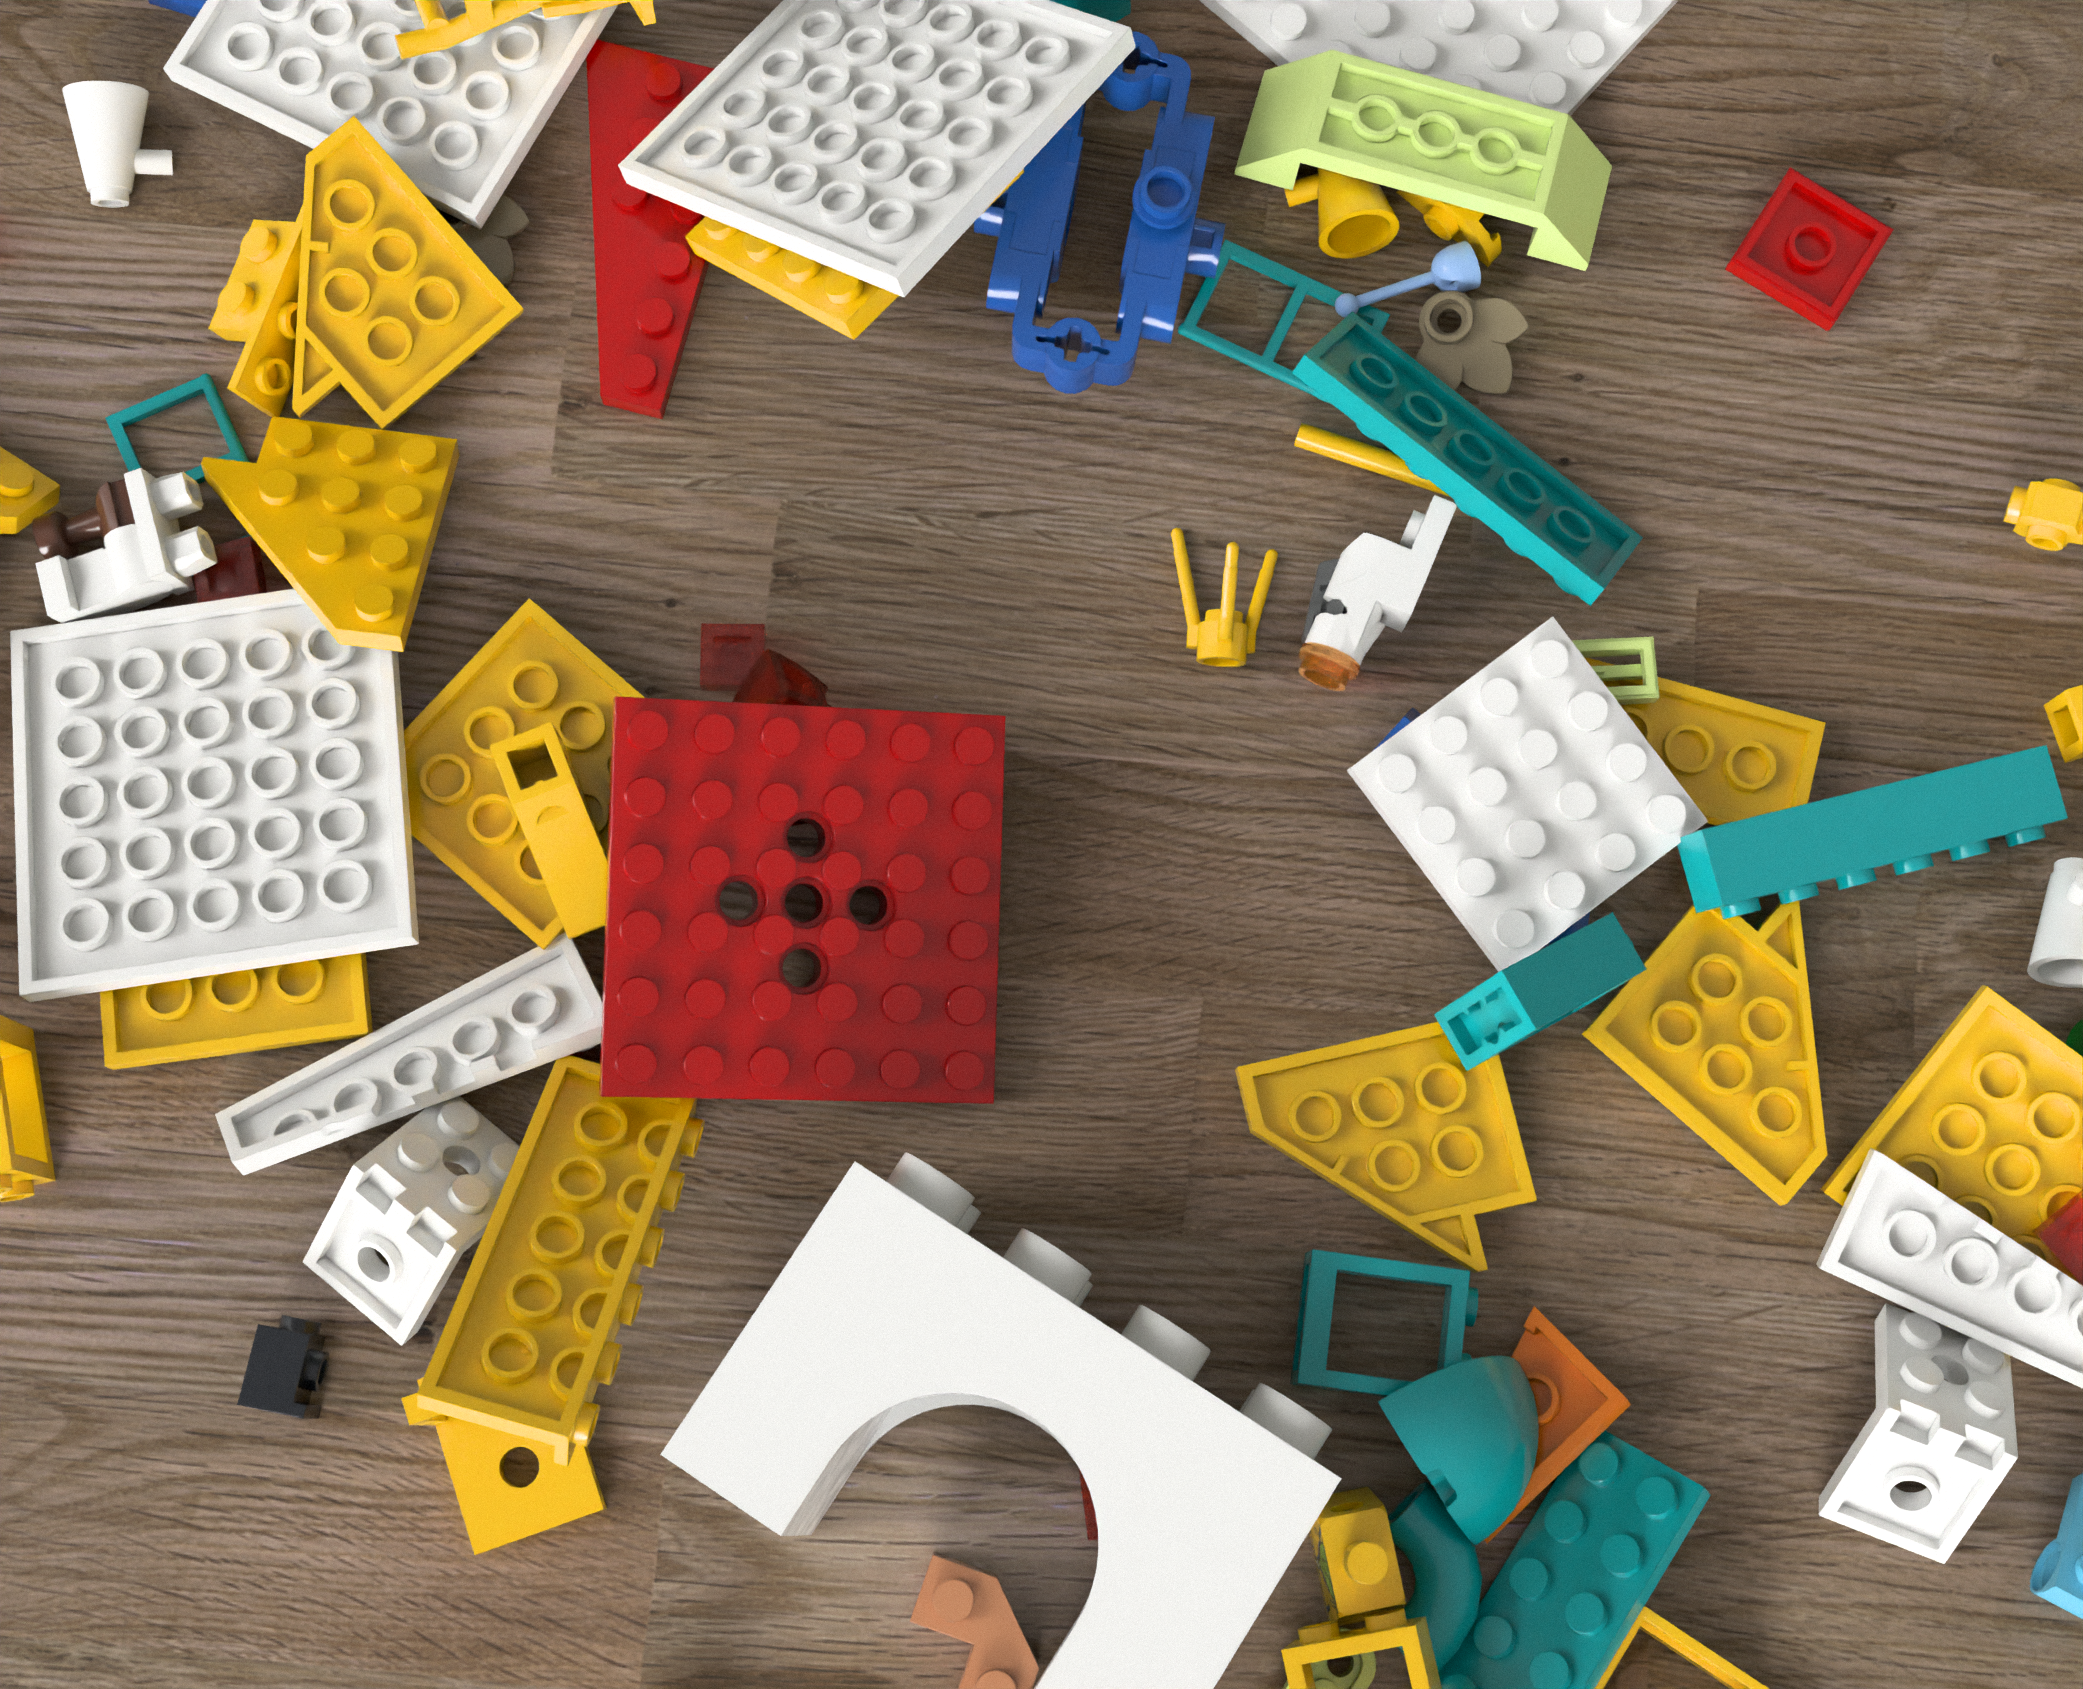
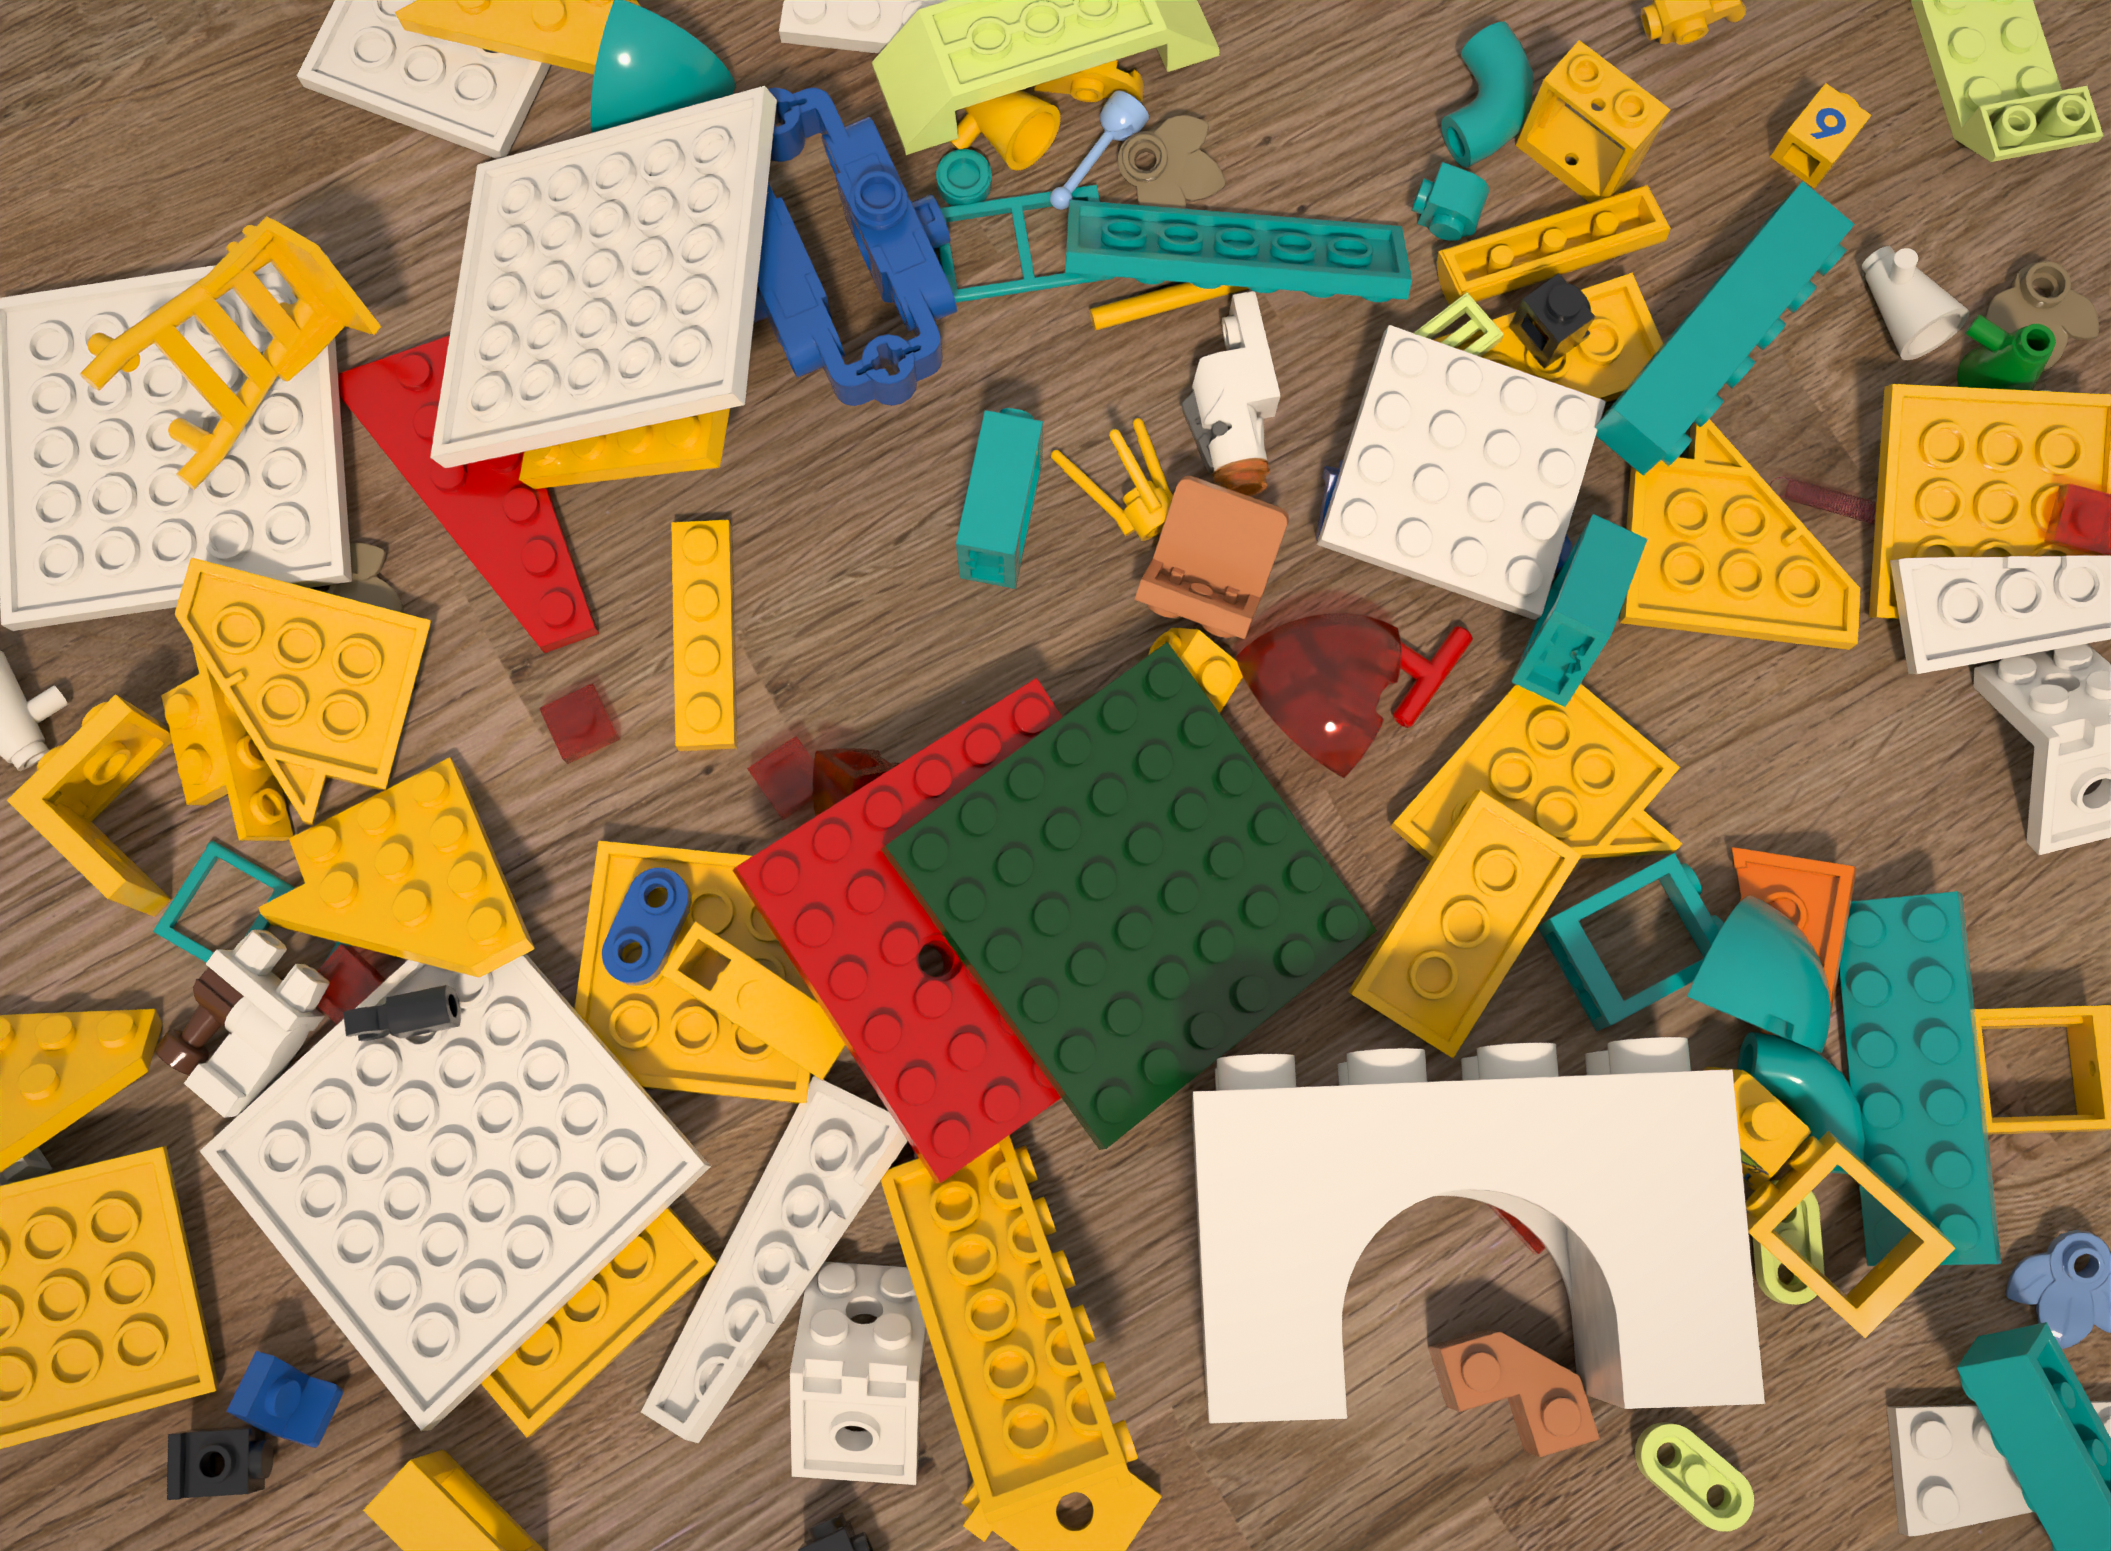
camera: 30 degrees left, 0 degrees up
(131, 248) = (80, 782): none -> yellow bracket
(257, 633) = (406, 1015): none -> black bar
(515, 701) = (651, 927): none -> blue plate
(588, 486) = (579, 723): none -> clear red plate
(750, 482) = (703, 635): none -> yellow plate
(952, 963) = (1130, 894): none -> dark green plate
(1091, 536) = (1000, 498): none -> teal window
(1159, 808) = (1206, 661): none -> yellow bracket
(1234, 1200) = (1464, 923): none -> yellow plate
(1245, 720) = (1213, 557): none -> nougat bracket
(1264, 897) = (1324, 682): none -> clear red brick
(1273, 229) = (963, 177): none -> teal tile
(1370, 957) = (1428, 674): none -> red piece
(1703, 546) = (1451, 202): none -> teal plate
(1712, 714) = (1562, 315): none -> black brick
(1770, 648) = (1552, 246): none -> yellow brick
(1821, 484) = (1502, 99): none -> teal cylinder
(1852, 1059) = (1813, 502): none -> clear pink piece
(1889, 587) = (1556, 132): none -> yellow window

